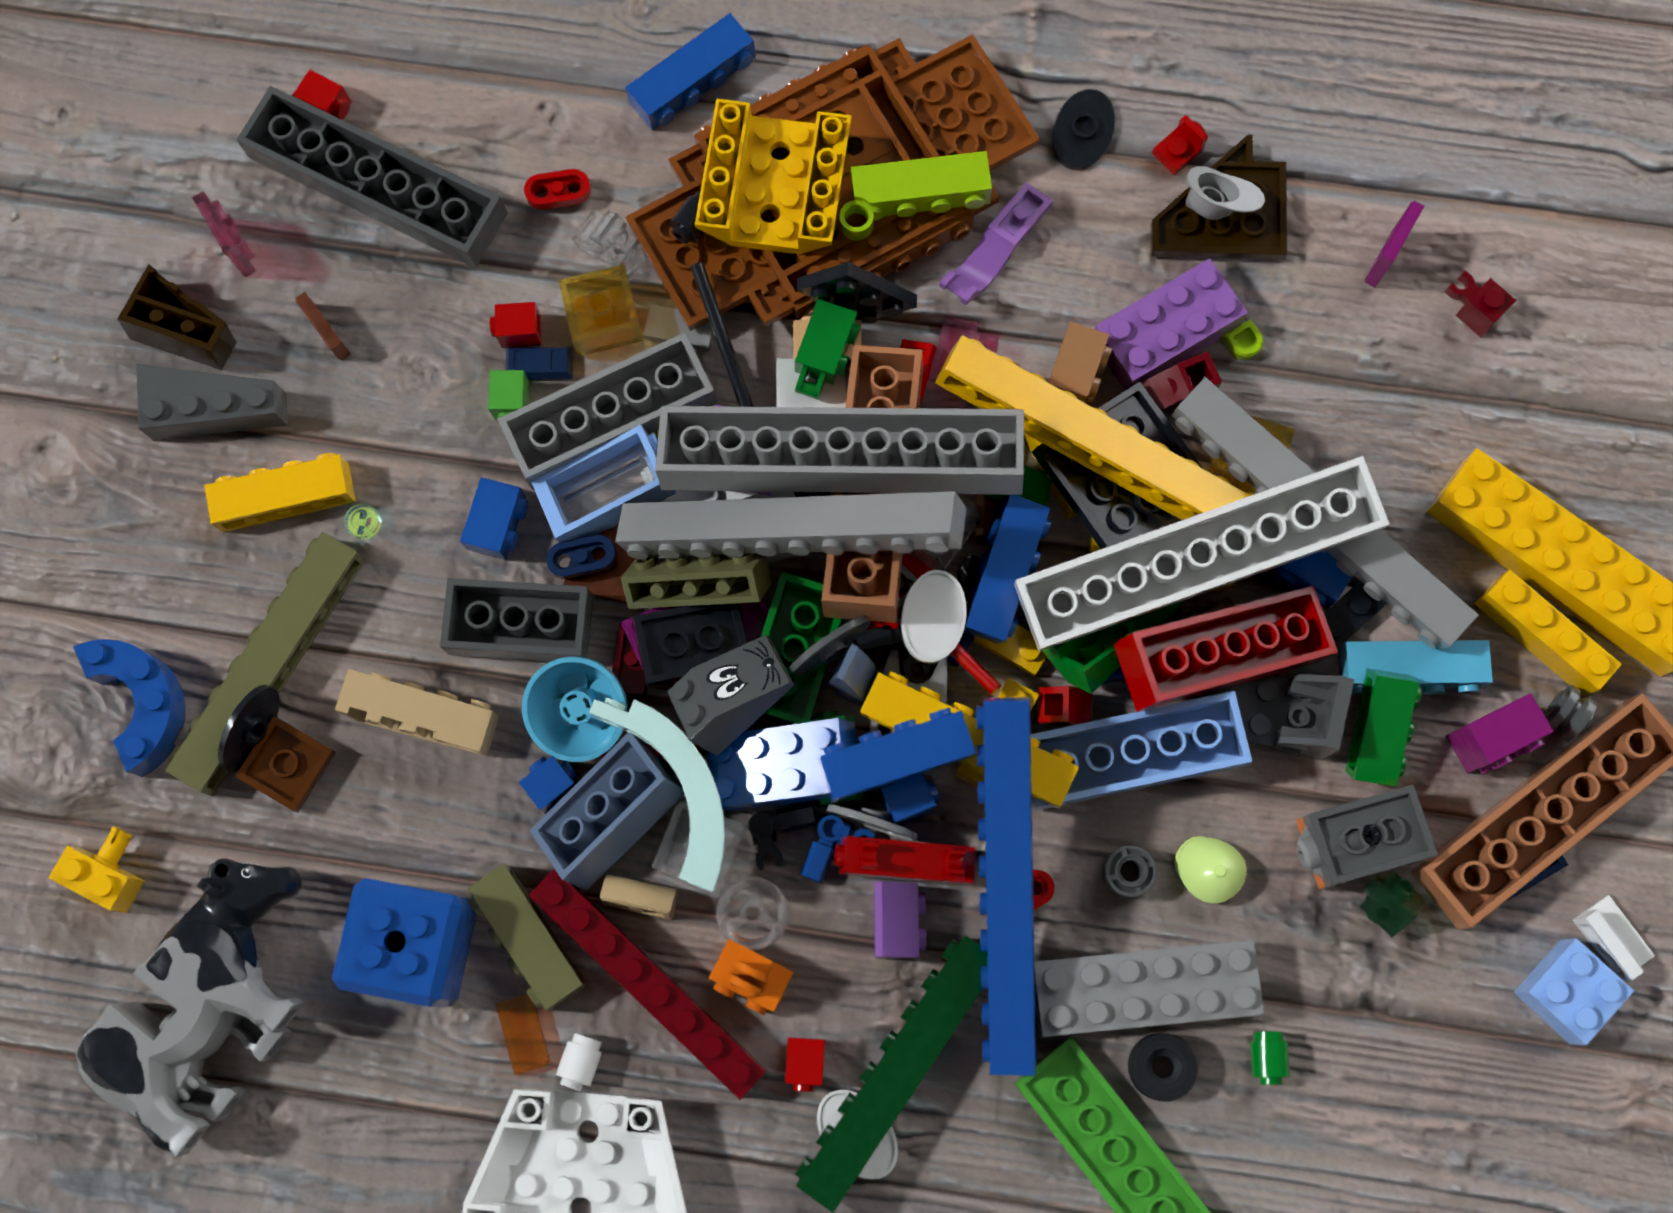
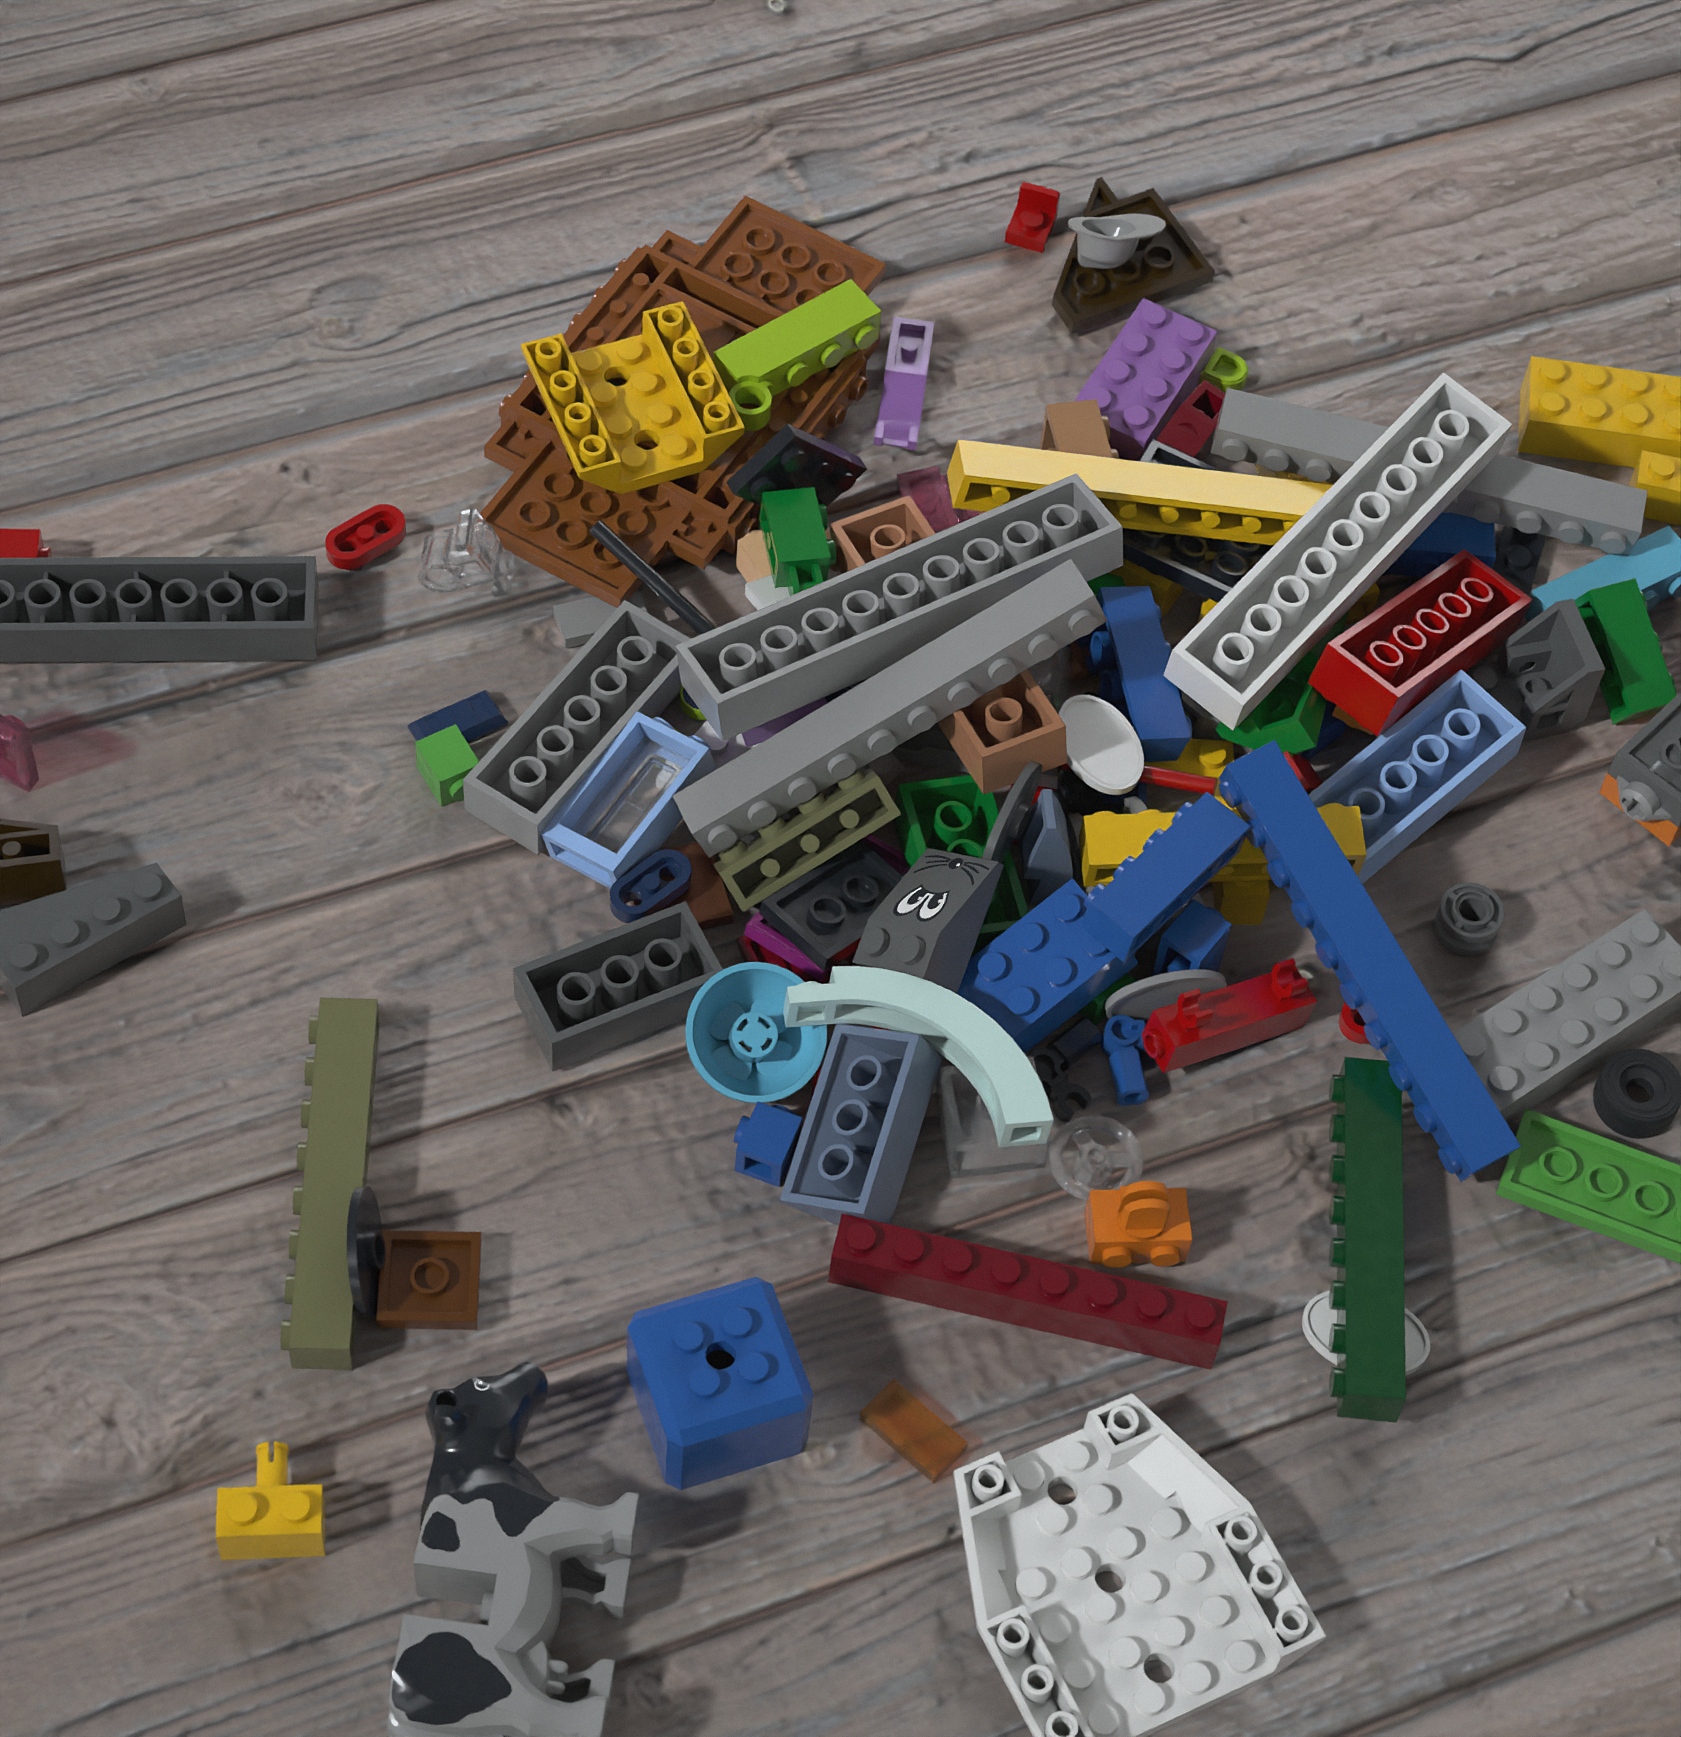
camera: 40 degrees left, 20 degrees down
(156, 696) = (192, 1266): blue brick -> none
(279, 492) = (231, 990): yellow brick -> none
(322, 326) = (170, 792): copper tile -> none
(362, 521) = (351, 978): clear light blue tile -> none
(417, 713) = (561, 1139): tan wedge -> none
(494, 519) = (516, 899): blue brick -> none
(517, 325) = (410, 690): red brick -> none
(526, 937) = (858, 1319): olive brick -> none
(579, 1062) = (1002, 1419): white brick -> none
(601, 310) = (505, 629): clear yellow brick -> none
(639, 897) = (956, 1210): tan brick -> none
(684, 221) = (559, 485): black brick -> none
(691, 72) = (447, 359): blue brick -> none
(805, 1063) = (1258, 1284): red brick -> none
(898, 920) = (1257, 1086): medium lavender slope -> none
(1083, 129) = (917, 247): black piece -> none
(1210, 869) = (1548, 879): yellowish green hat -> none
(1394, 243) = (1317, 212): magenta tile -> none
(1482, 305) = (1440, 236): dark red brick -> none

